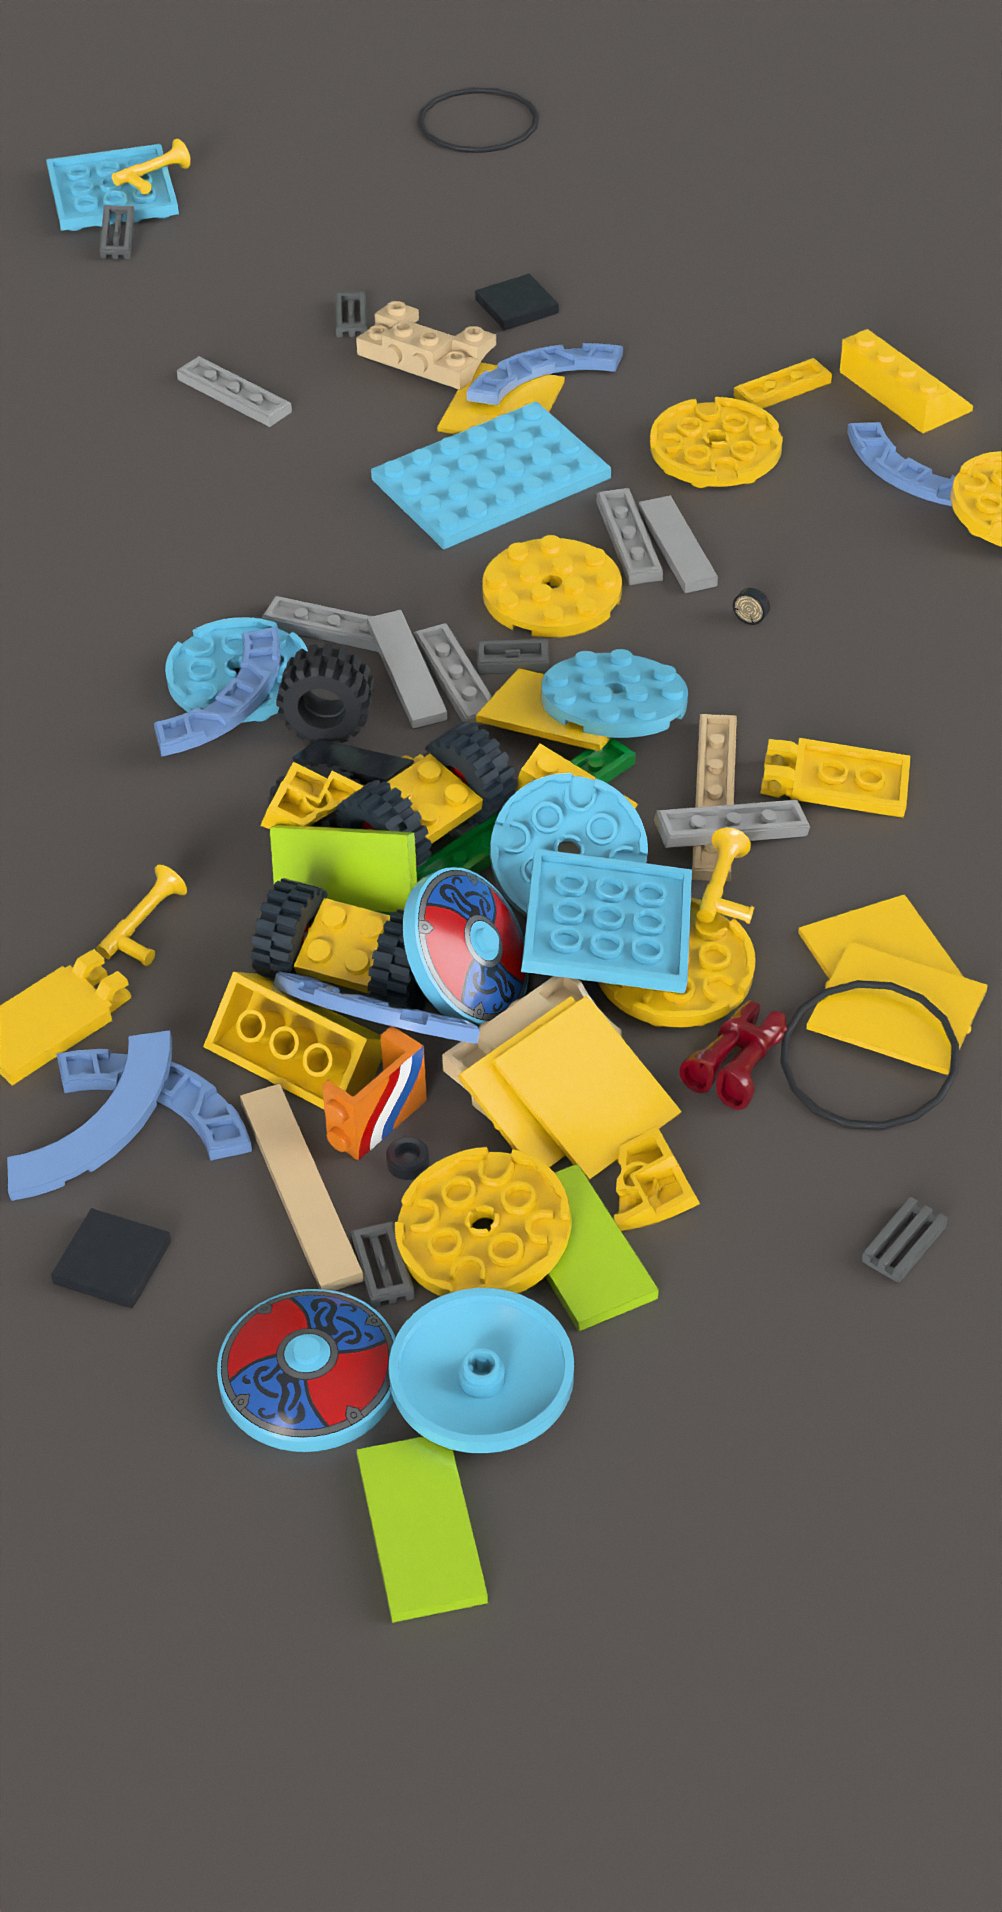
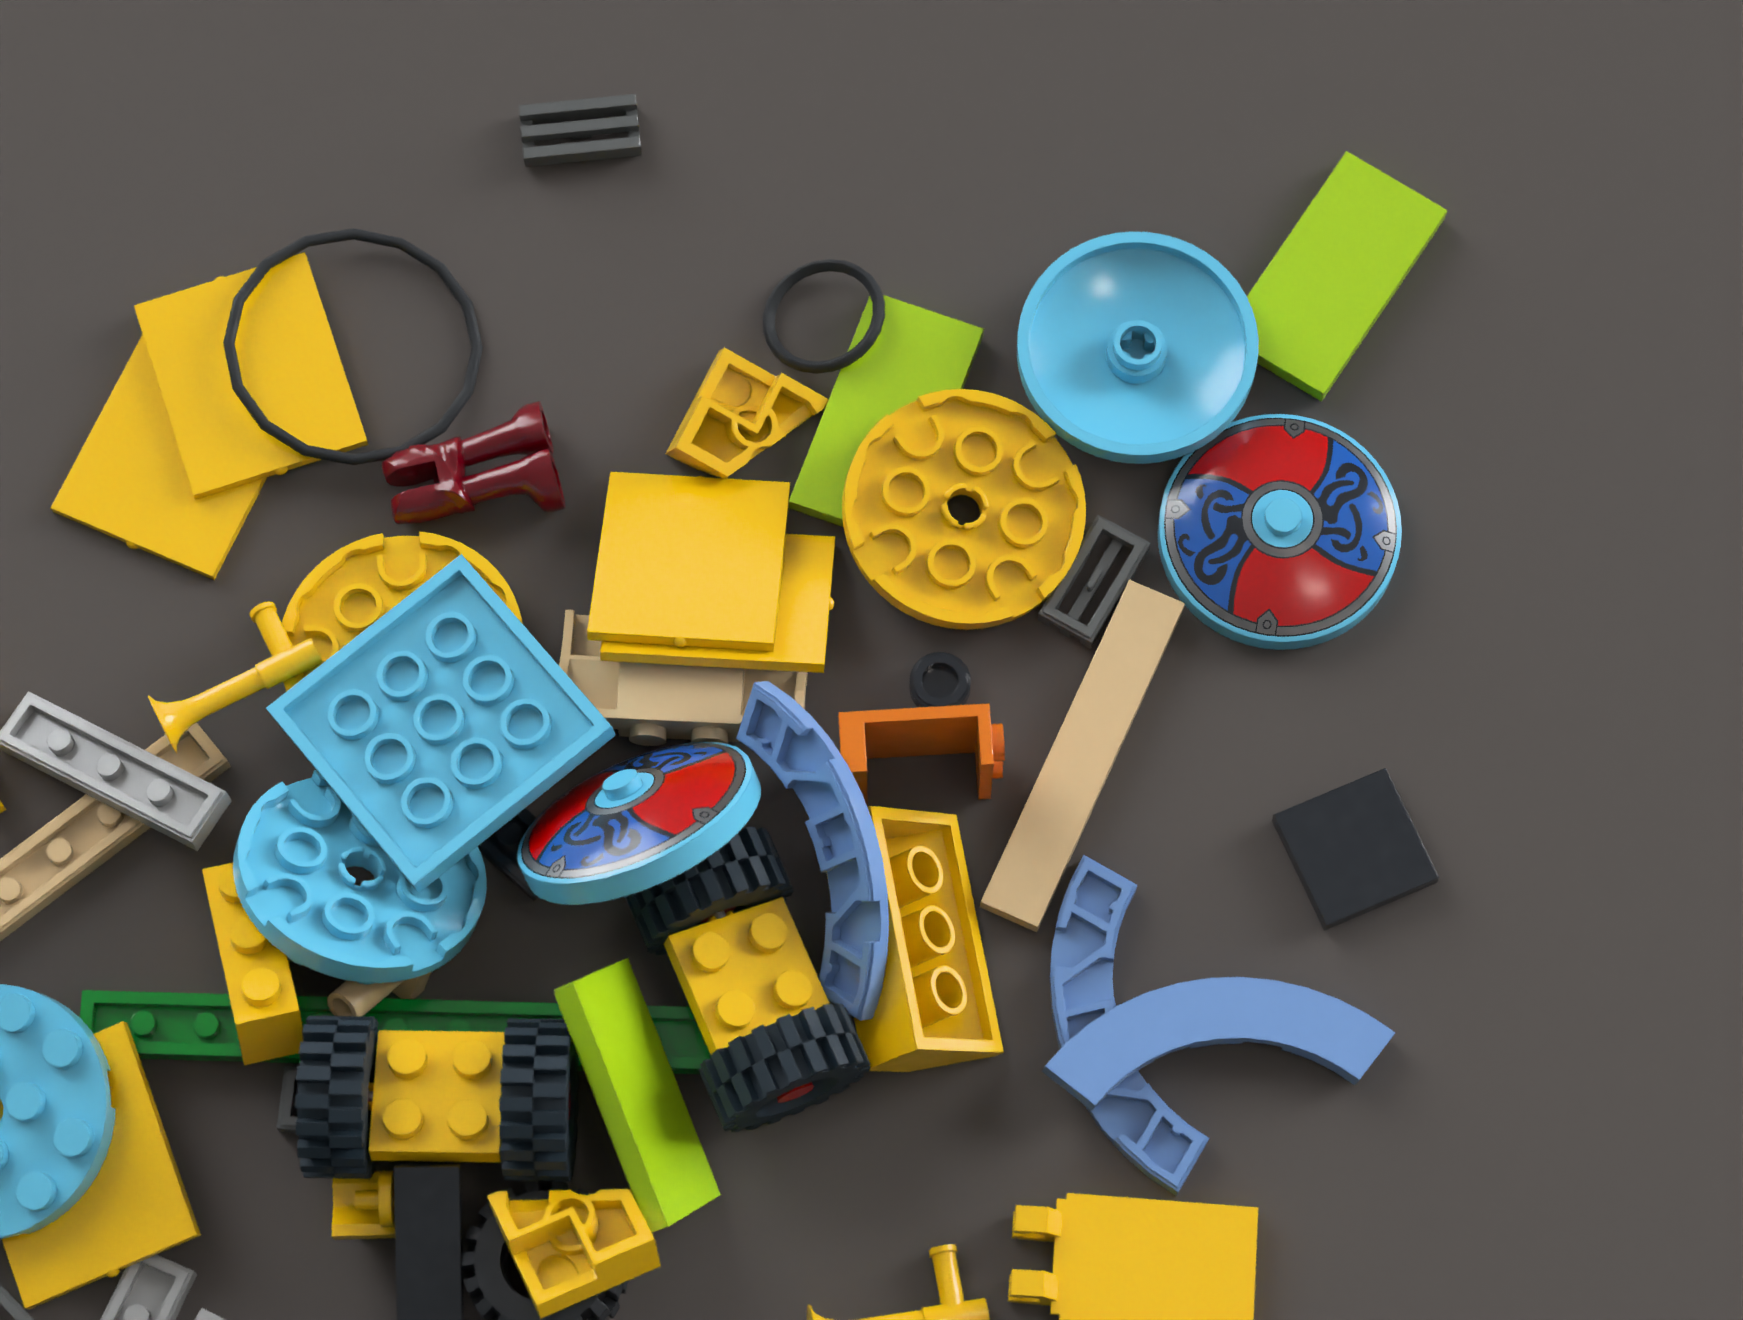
camera: 135 degrees left, 25 degrees up
(666, 1289) = (851, 356): none -> black tyre

